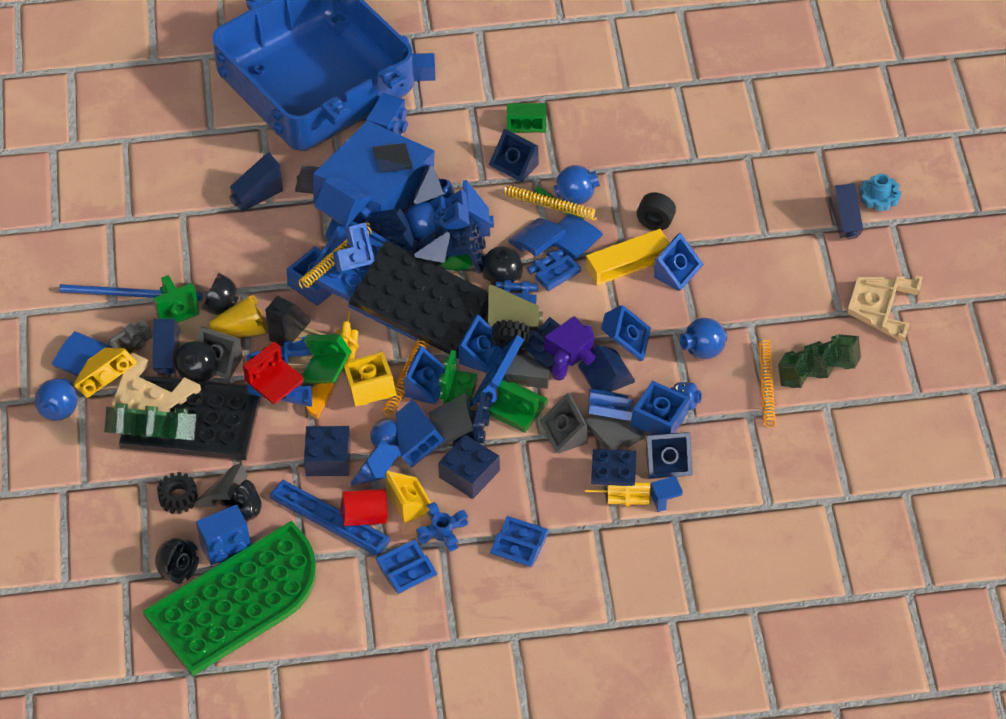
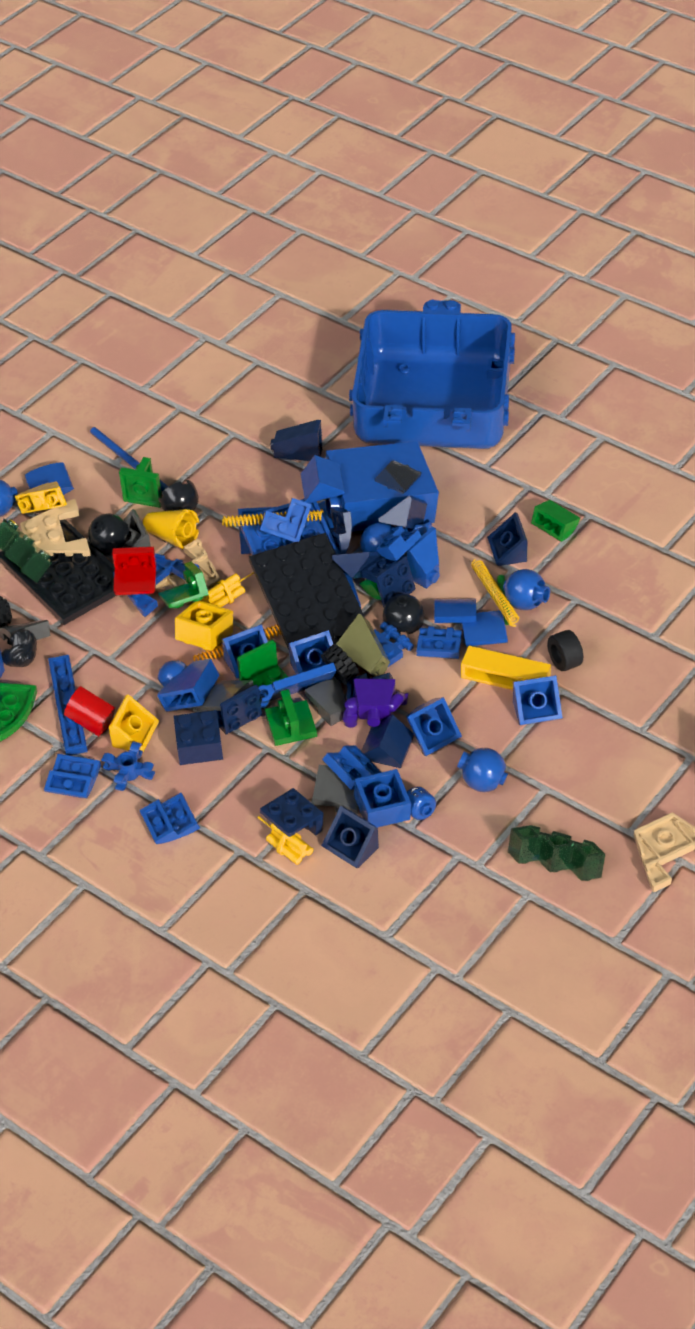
camera: 45 degrees right, 5 degrees down
(132, 337) = (92, 491): dark grey piece -> none
(165, 346) = (106, 500): dark blue slope -> none
(285, 321) = (192, 542): black slope -> none
(320, 396) = (160, 617): light orange tile -> none
(327, 451) = (118, 655): dark blue brick -> none
(377, 464) = (131, 682): blue slope -> none
(390, 113) = (442, 454): blue brick -> none
(424, 67) = (521, 436): blue panel -> none
(565, 425) = (304, 760): dark grey slope -> none
(664, 490) = (313, 860): blue panel -> none
(766, 363) = (497, 842): light orange piece -> none

